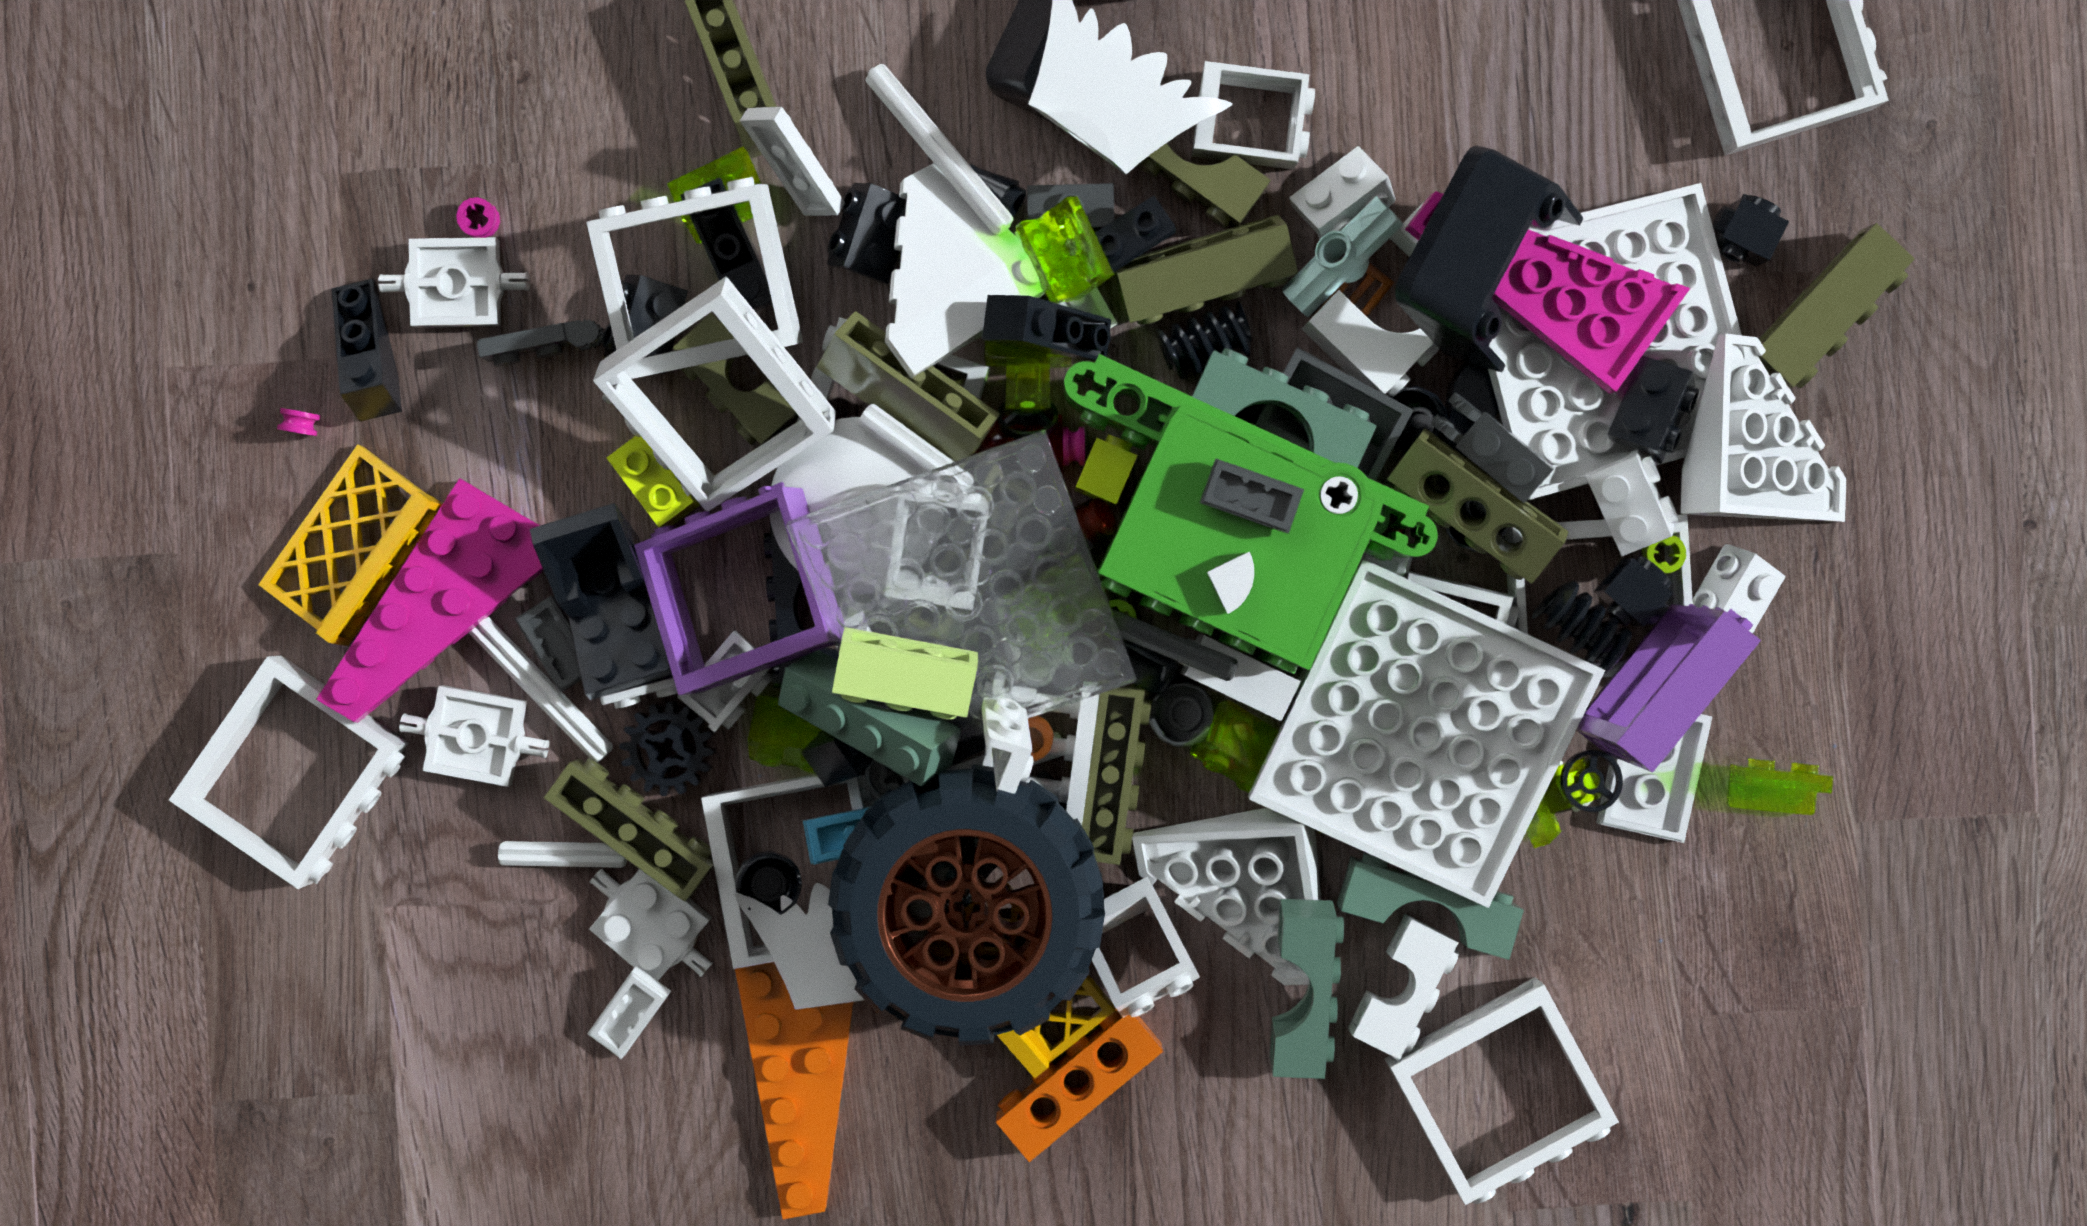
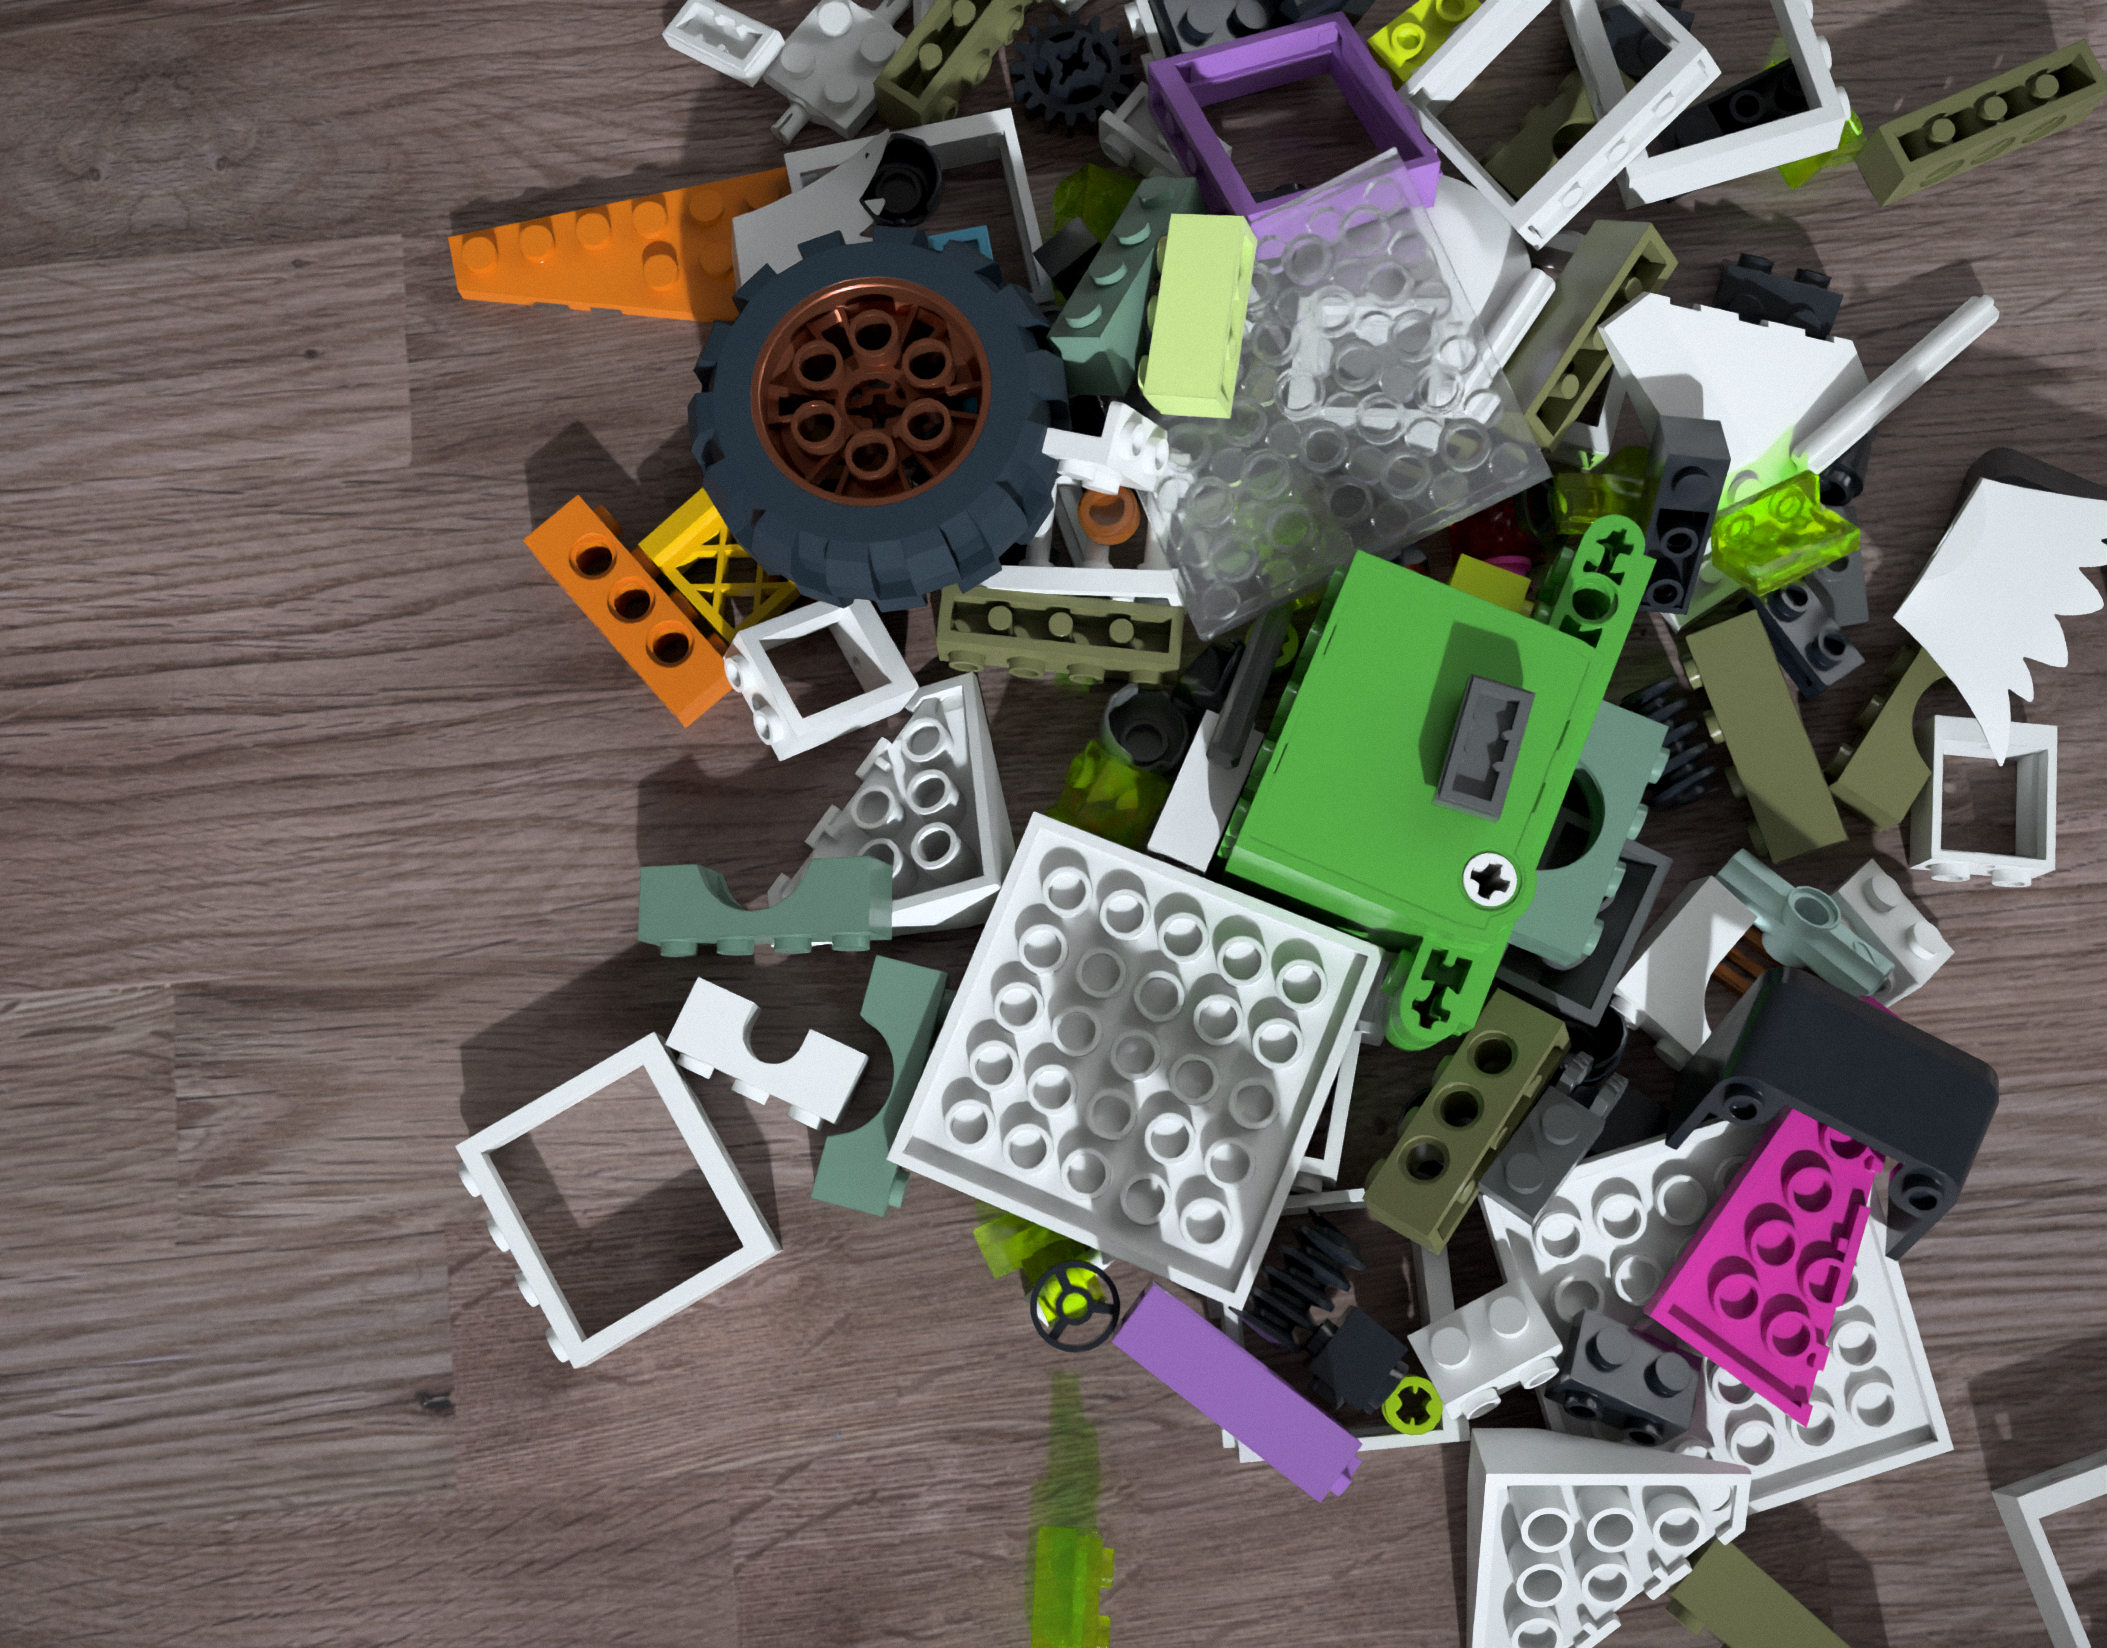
camera: 90 degrees right, 10 degrees down
(792, 161) = (1868, 186): white plate -> none
(1233, 581) = (1359, 729): white tile -> none
(1661, 800) = (1085, 1417): white tile -> none
(1739, 583) = (1356, 1536): white bracket -> none
(1749, 230) = (1891, 1525): black brick -> none

